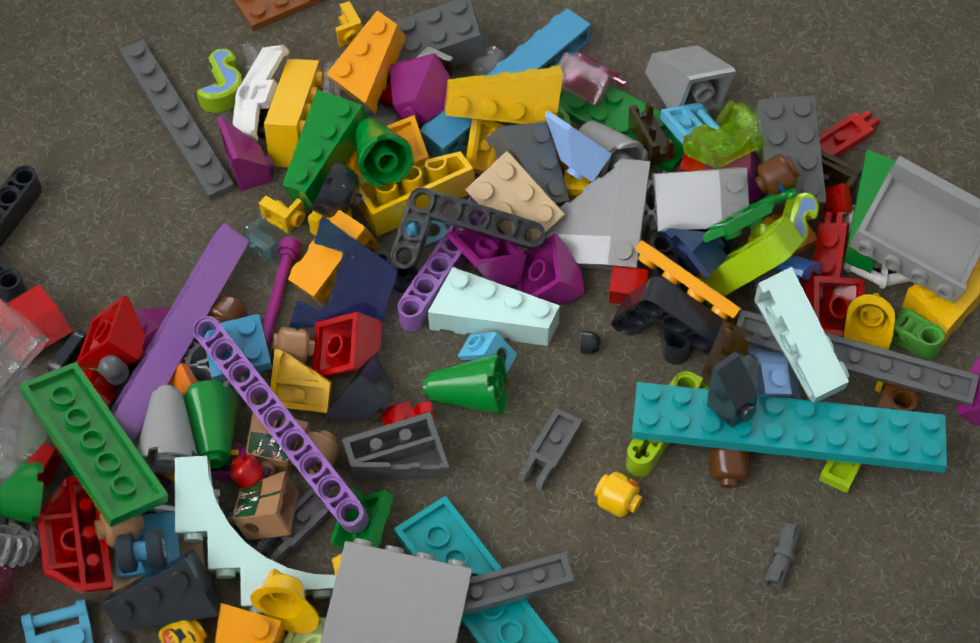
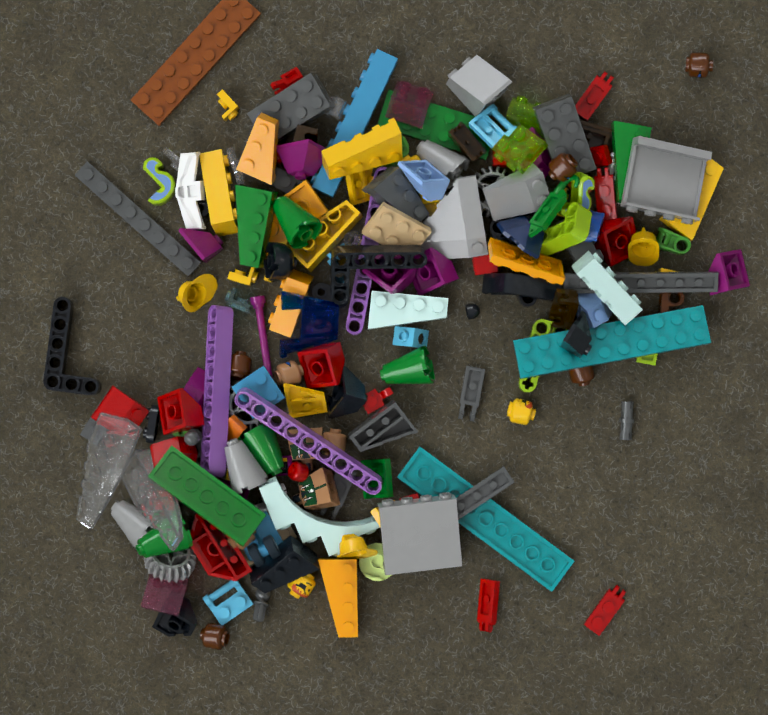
camera: 20 degrees left, 30 degrees up
(209, 209) = (197, 292): none -> yellow piece

